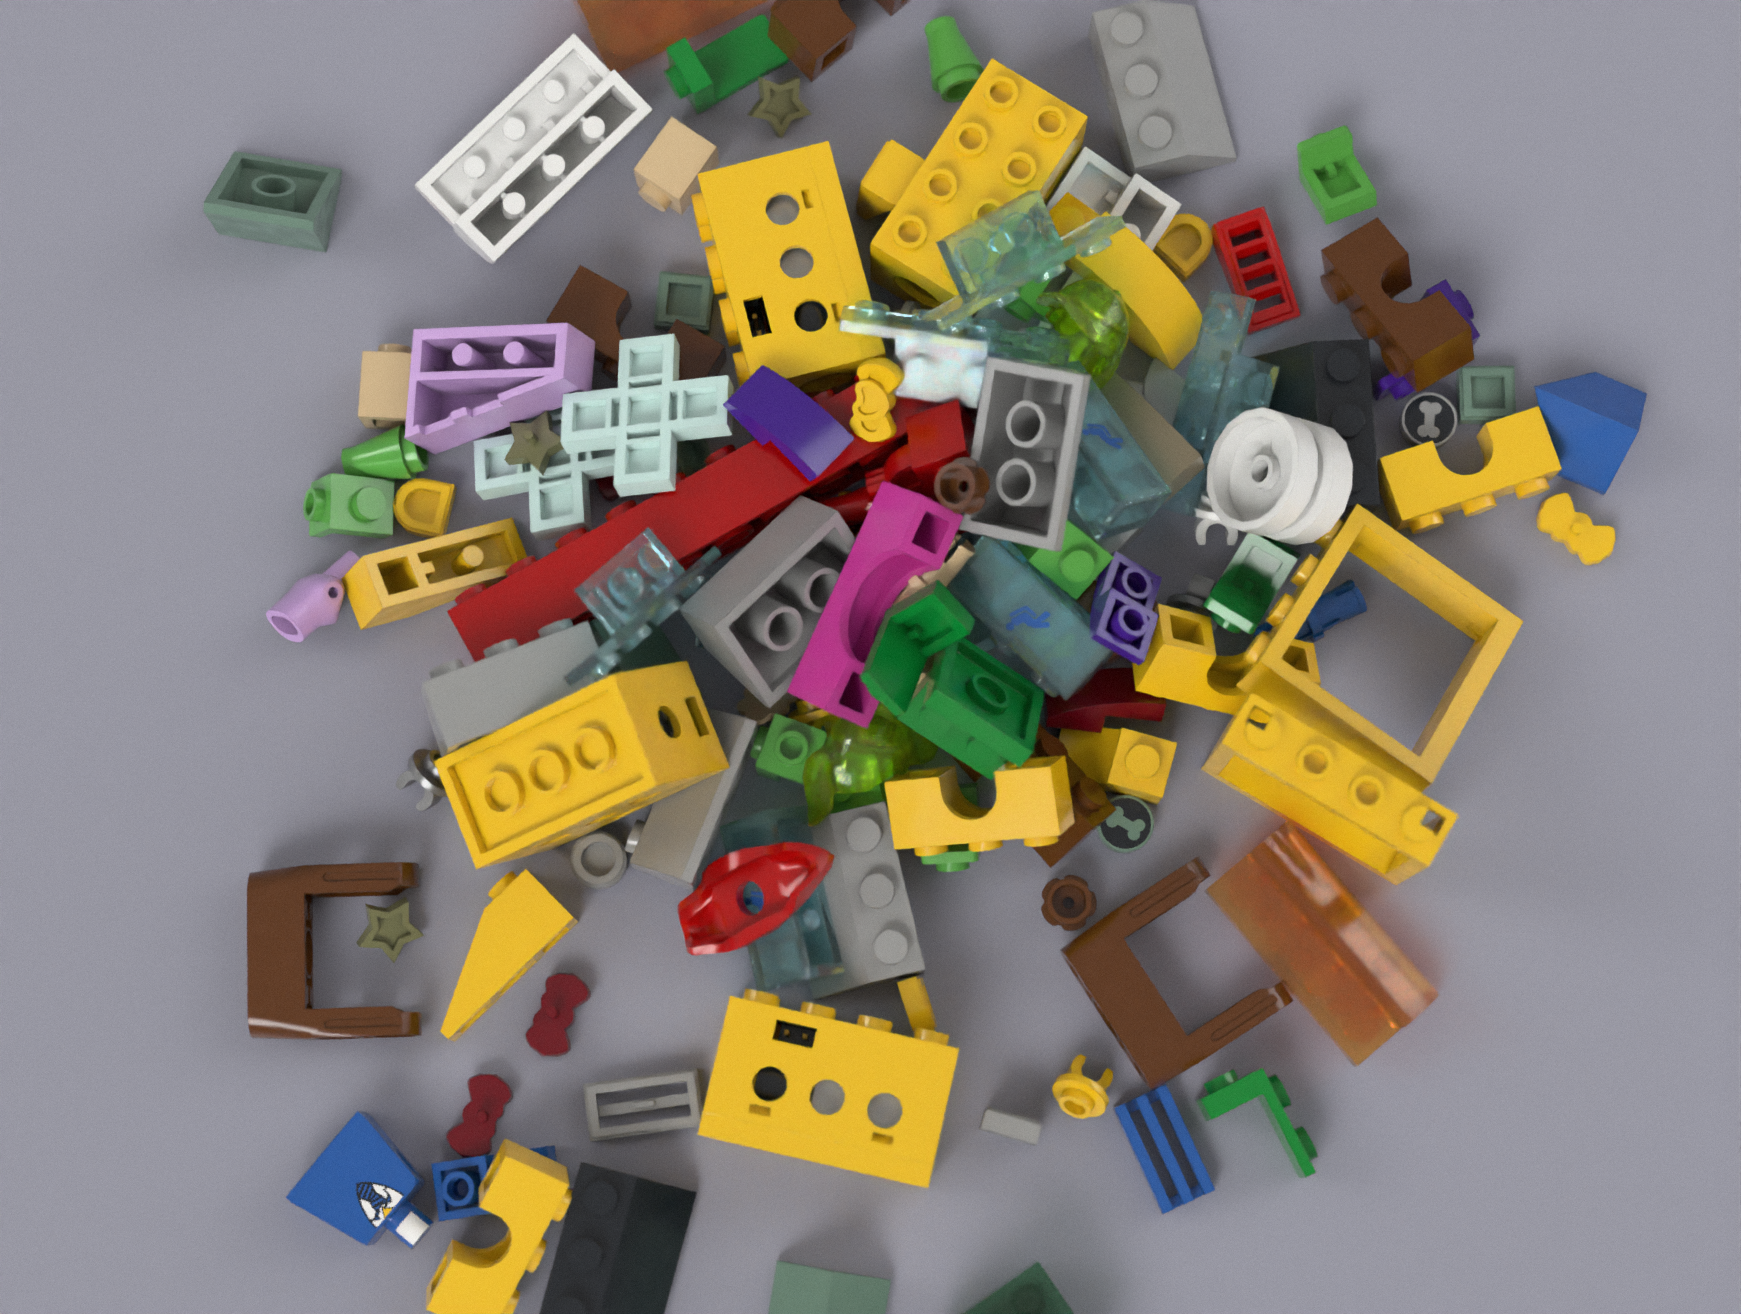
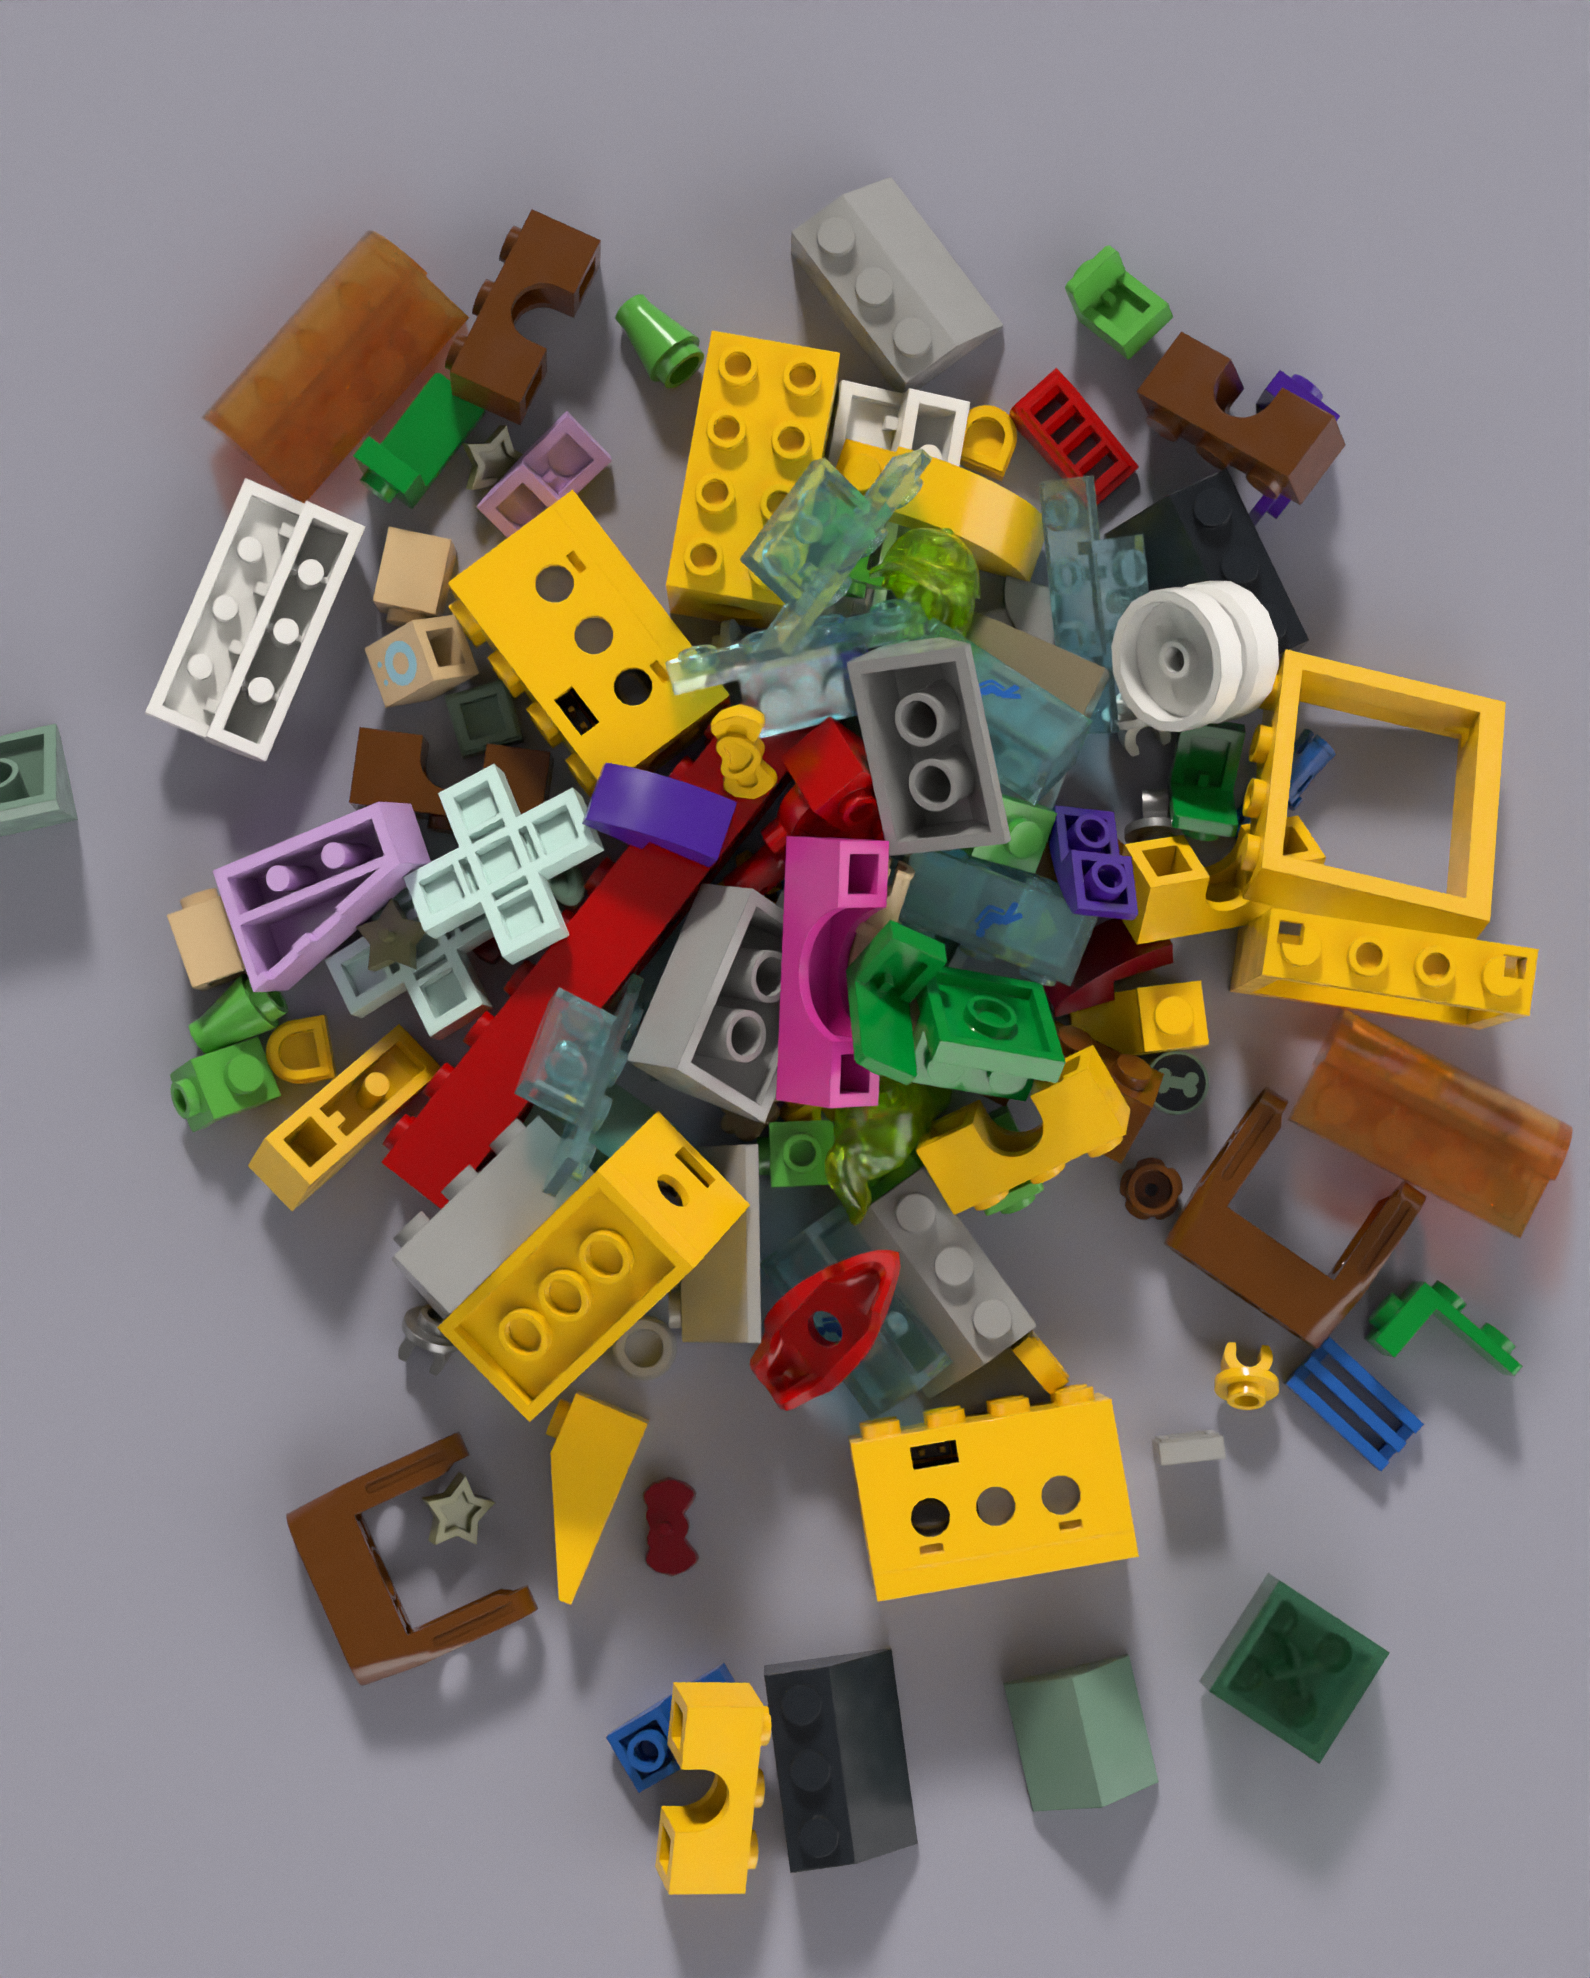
camera: 30 degrees left, 5 degrees up
(311, 601) = (227, 1200): lavender piece -> none
(364, 1186) = (546, 1790): blue torso -> none
(488, 1098) = (635, 1643): dark red piece -> none
(652, 233) = (421, 660): none -> tan brick
(691, 1098) = (845, 1554): light grey tile -> none
(832, 119) = (552, 467): none -> lavender slope
(886, 179) = (652, 503): yellow slope -> none
(950, 482) = (866, 822): reddish brown plate -> none
(1428, 419) = (1318, 527): tile -> none
(1485, 393) = (1367, 474): sand green tile -> none
(1515, 459) = (1424, 529): yellow arch -> none
(1575, 529) = (1516, 579): yellow piece -> none
(1591, 426) = (1491, 463): blue slope -> none

